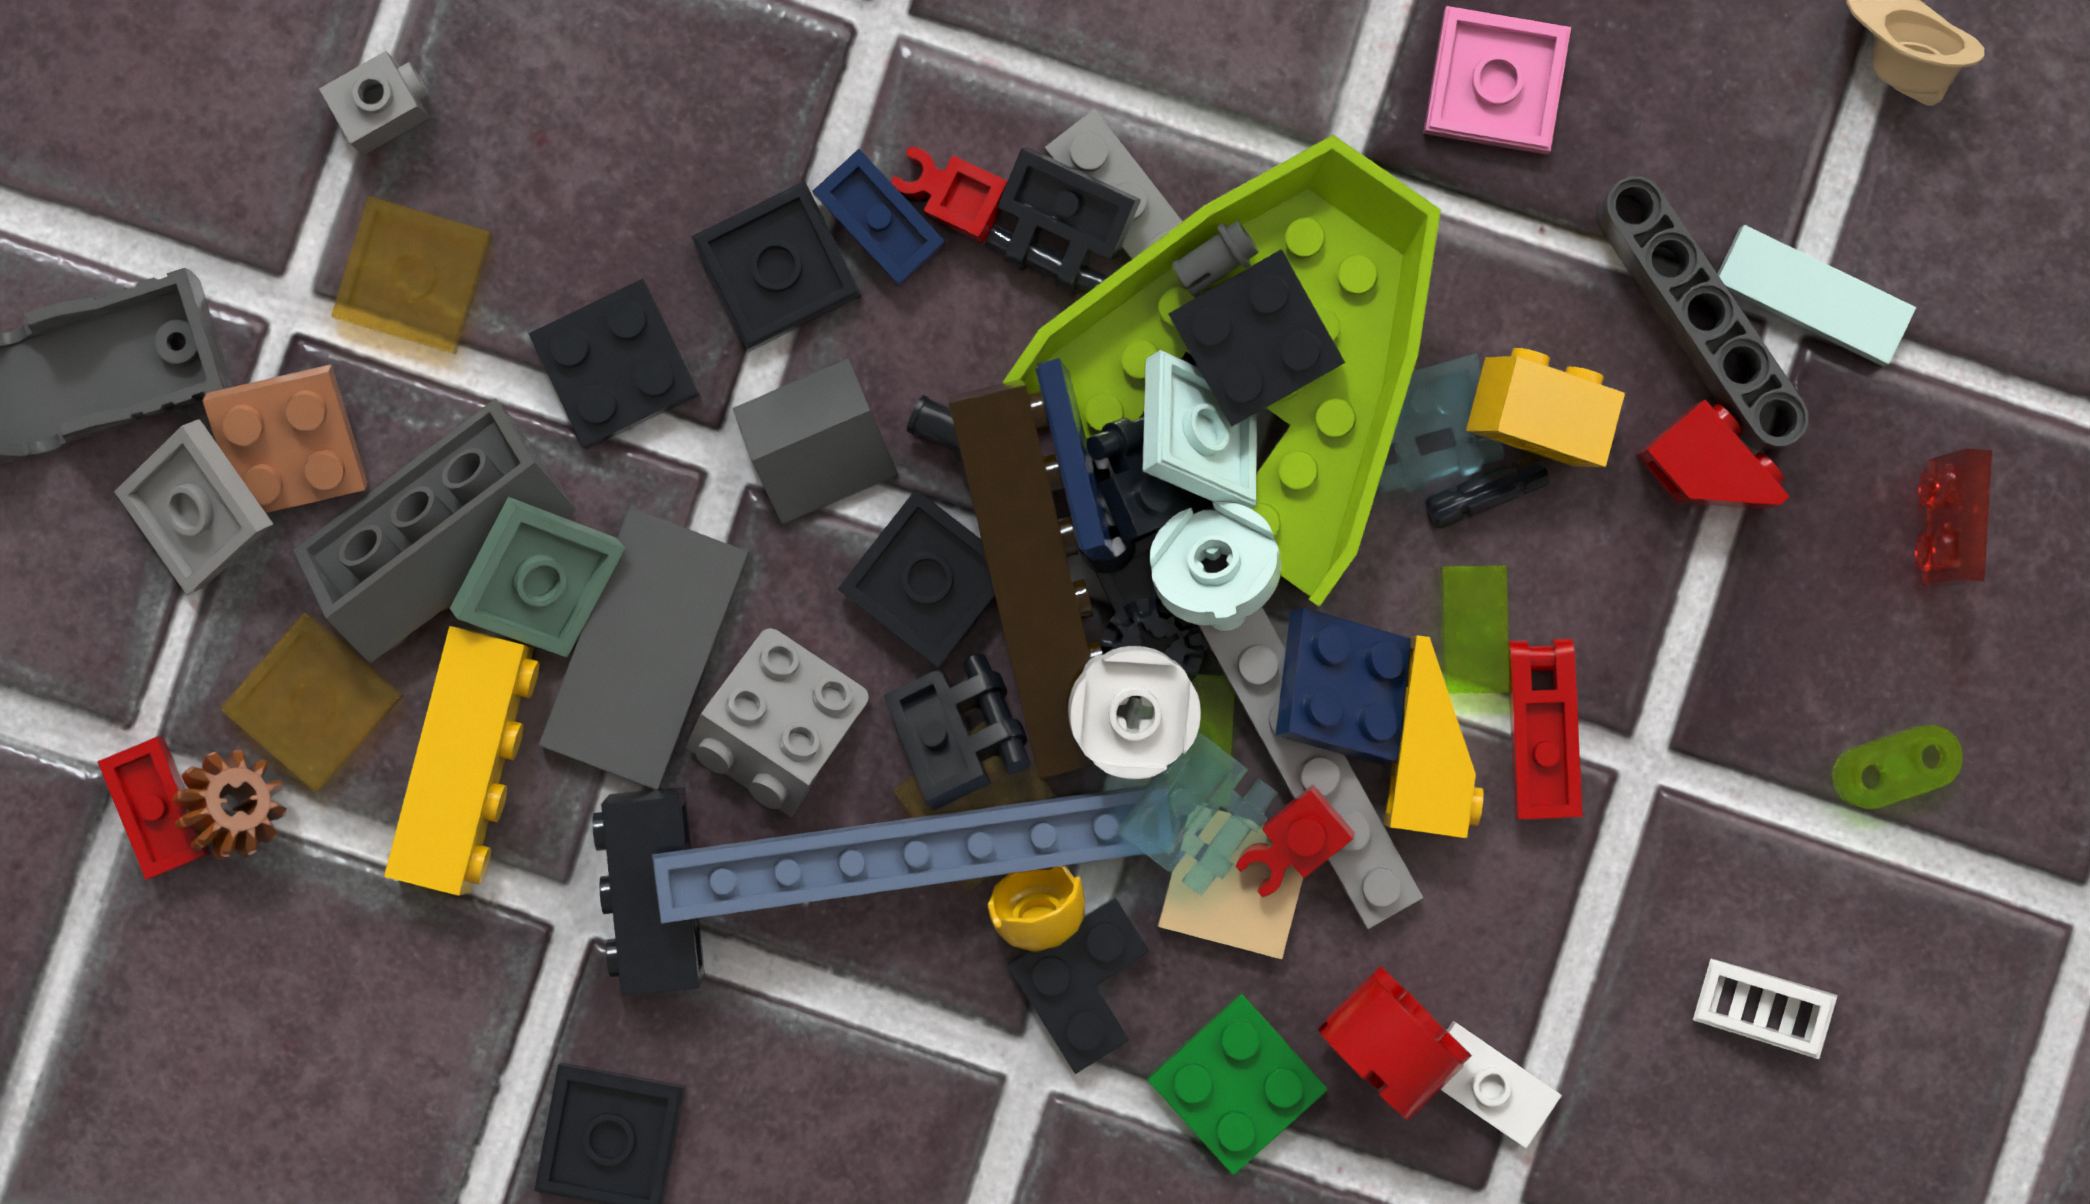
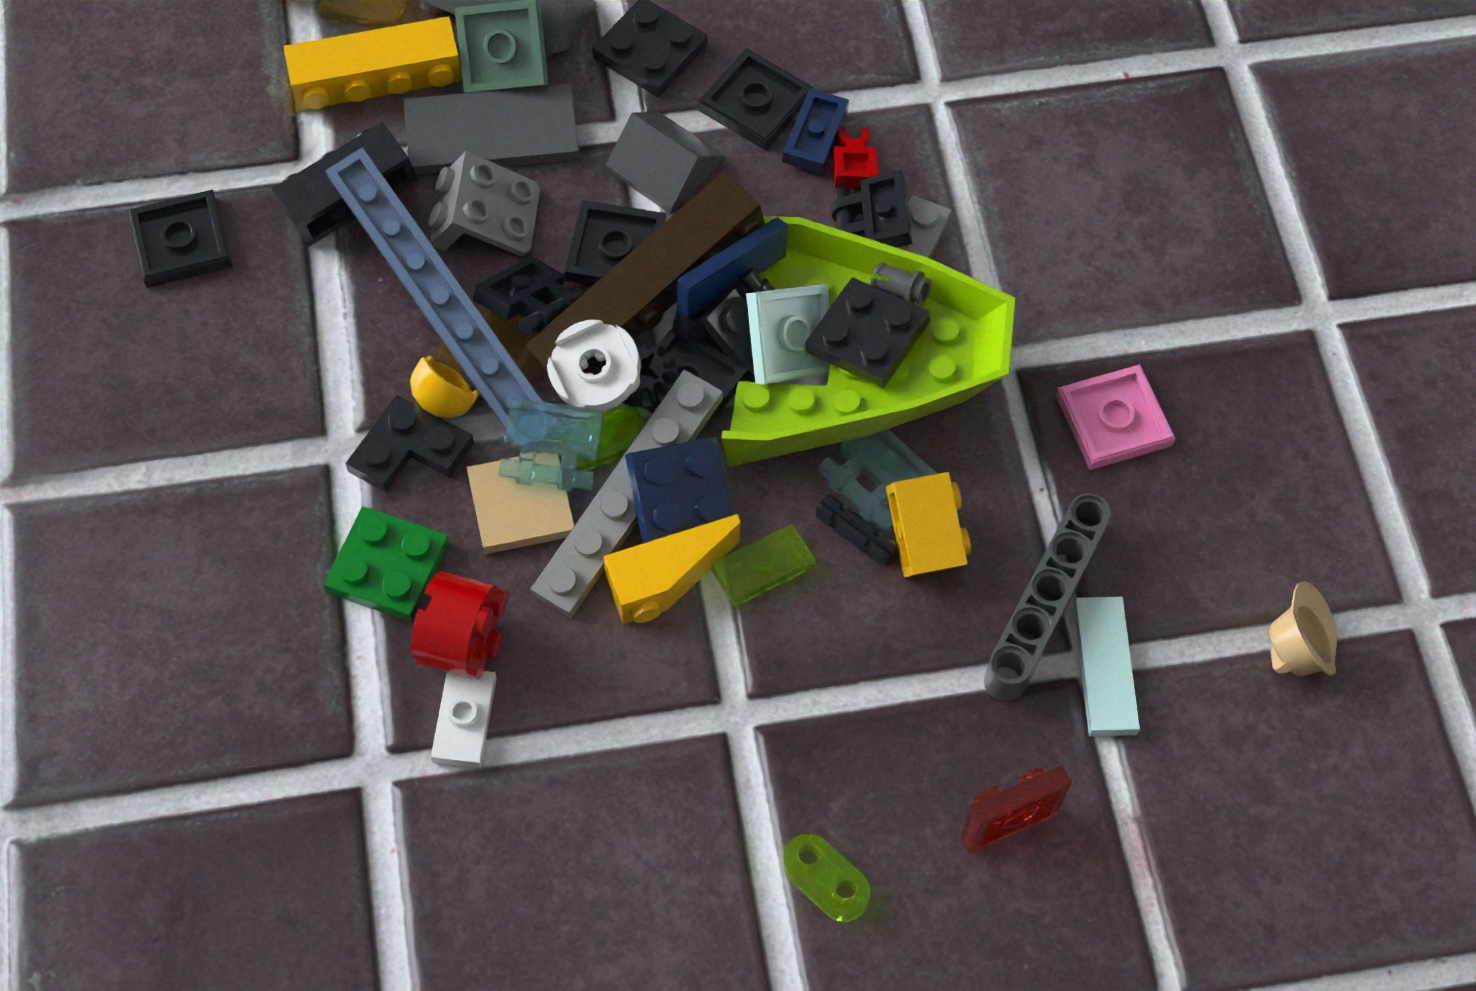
camera: 60 degrees right, 25 degrees down
(1224, 596) = (713, 371): light aqua plate -> none
(1301, 836) = (567, 511): red plate -> none
(1544, 732) = (720, 634): red plate -> none
(1708, 464) = (952, 647): red slope -> none
(1818, 1023) = (613, 904): white slope -> none

